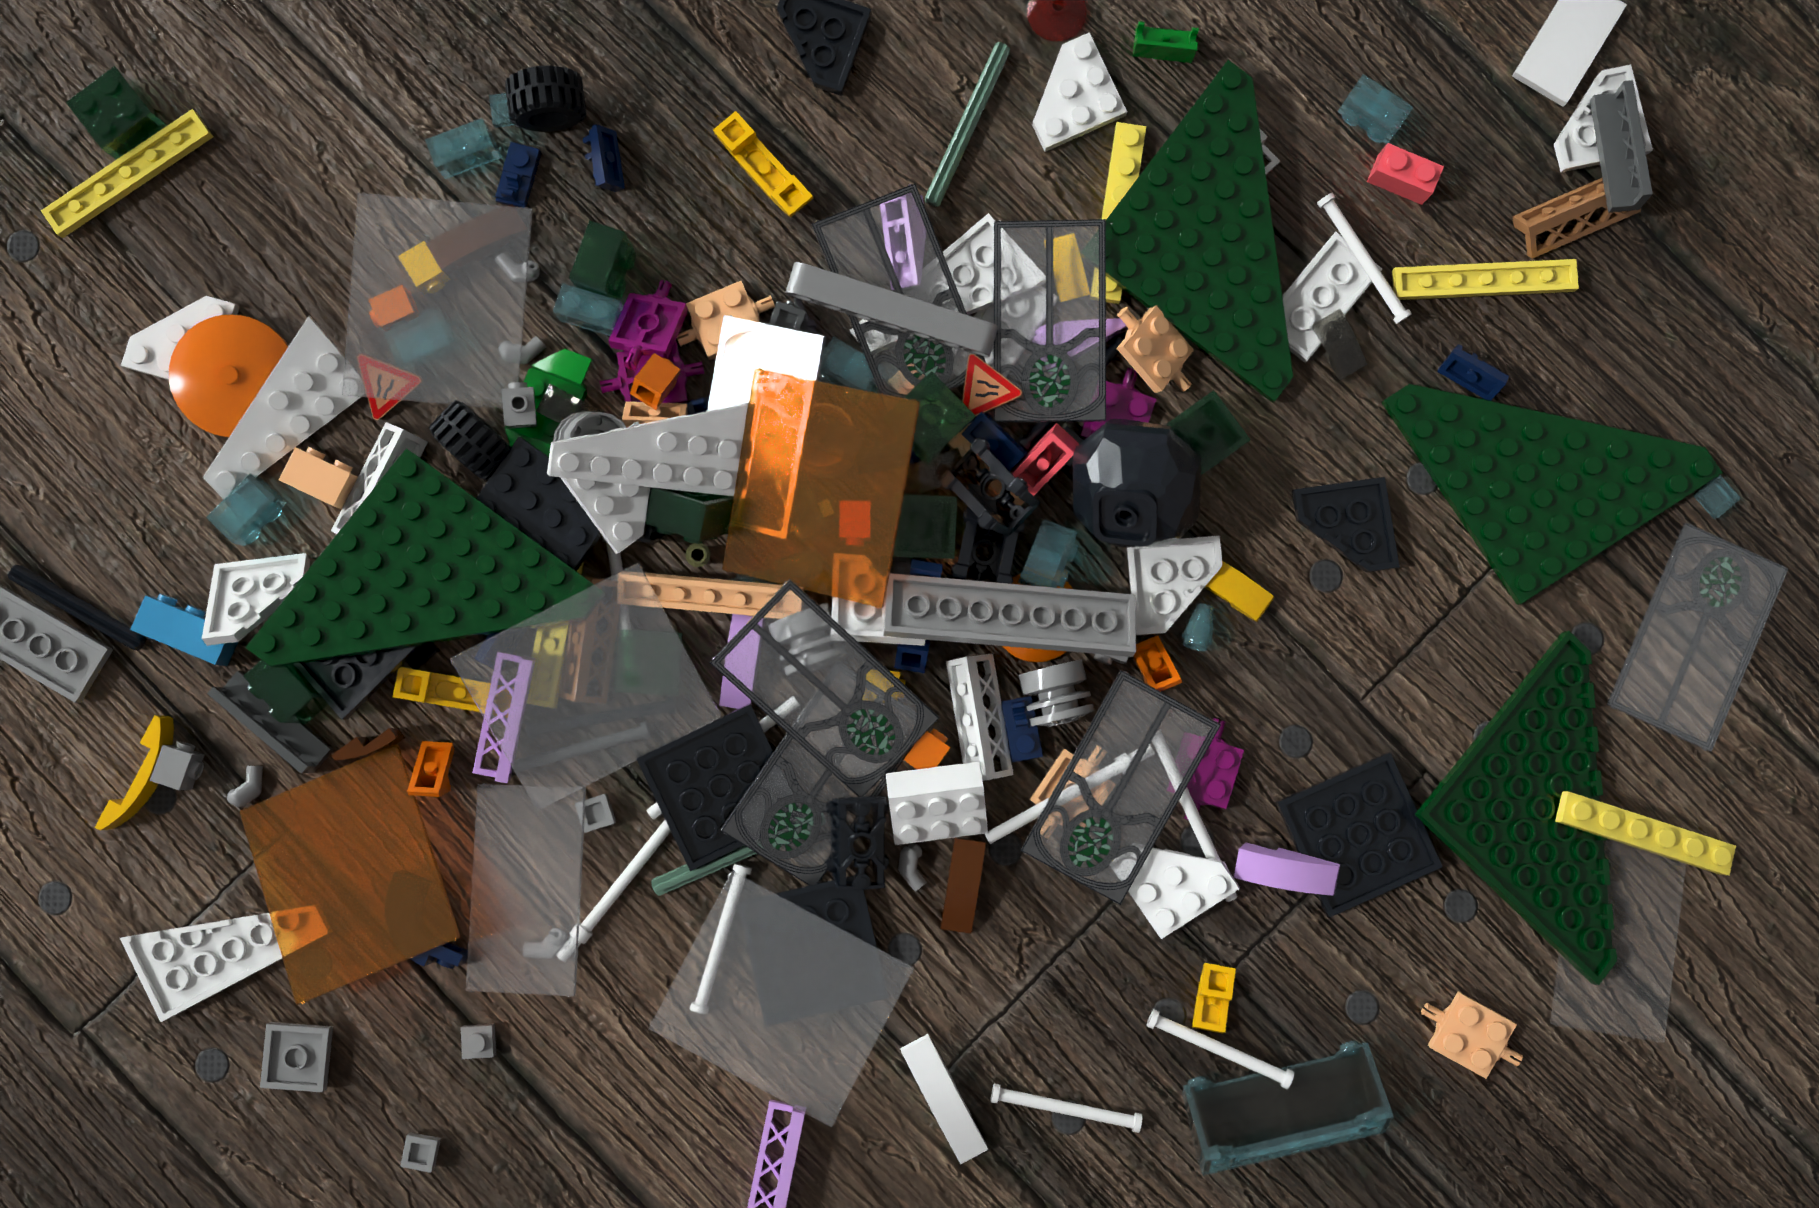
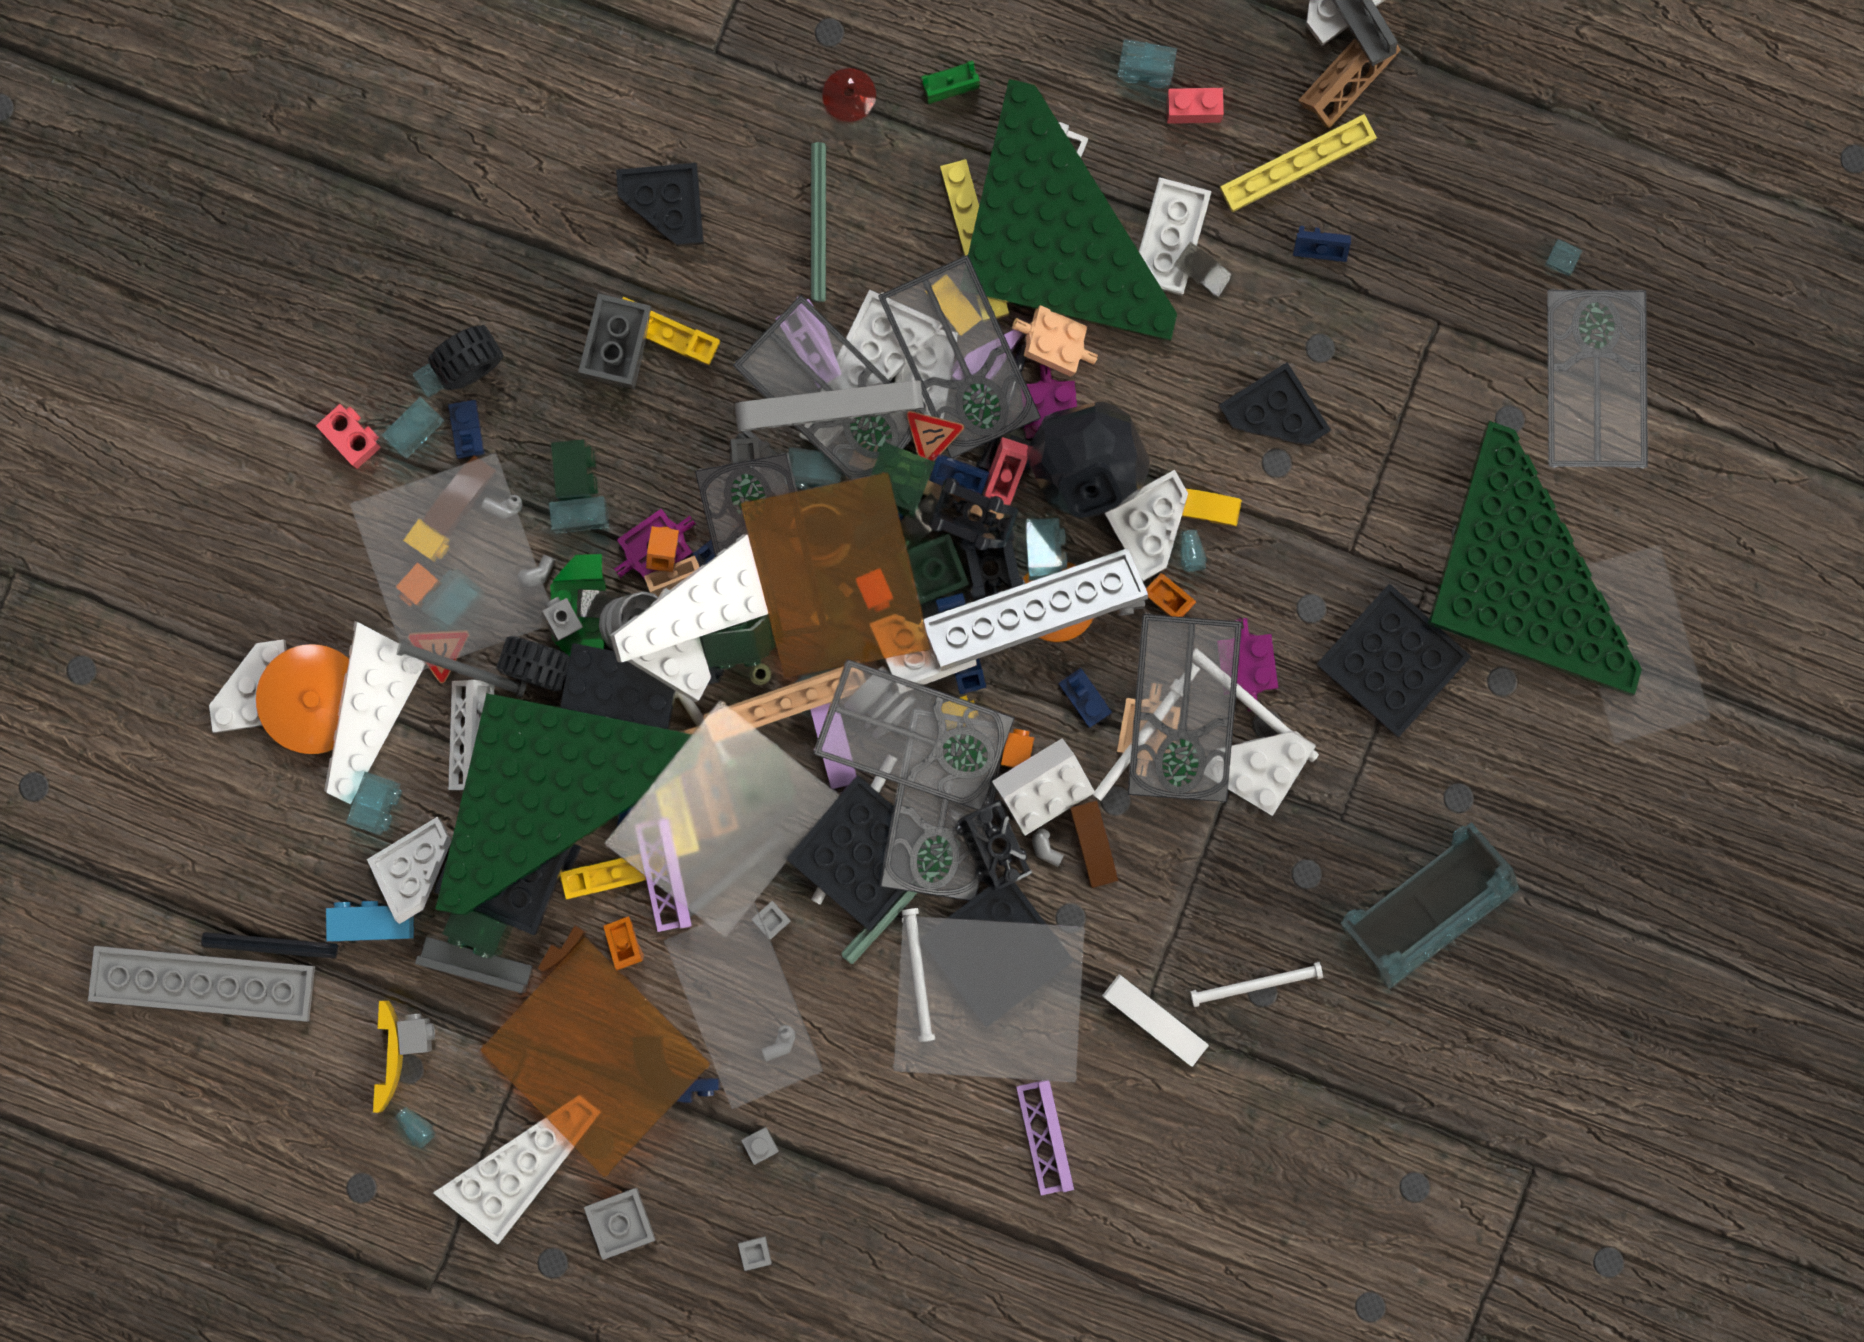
camera: 20 degrees left, 0 degrees up
(115, 113) = (111, 526): clear green brick -> none
(127, 173) = (143, 572): light yellow plate -> none
(135, 862) = (415, 1127): none -> clear light blue cone
(248, 790) = (480, 1029): light grey arm -> none
(319, 478) = (420, 750): light nougat brick -> none
(390, 131) = (345, 439): none -> coral brick
(394, 410) = (461, 668): none -> dark grey bar
(605, 158) = (533, 382): dark blue plate -> none
(622, 882) = (818, 963): white bar -> none
(648, 325) = (633, 505): magenta plate -> none
(705, 151) = (615, 342): none -> dark grey slope
(709, 310) = (680, 468): light nougat plate -> none
(974, 718) = (1042, 705): white fence -> none
(1056, 693) = (1099, 655): light grey wheel -> none
(1077, 95) = (897, 158): white plate -> none
(1211, 430) = (1128, 389): clear green brick -> none
(1213, 998) = (1335, 844): yellow slope -> none
(1220, 1049) = (1357, 881): white bar -> none
(1286, 870) = (1346, 714): lavender slope -> none
(1364, 258) = (1191, 189): white bar -> none
(1472, 1034) = (1554, 780): light nougat plate -> none
(1540, 485) = (1416, 311): dark green plate -> none
(1645, 833) = (1621, 556): light yellow plate -> none

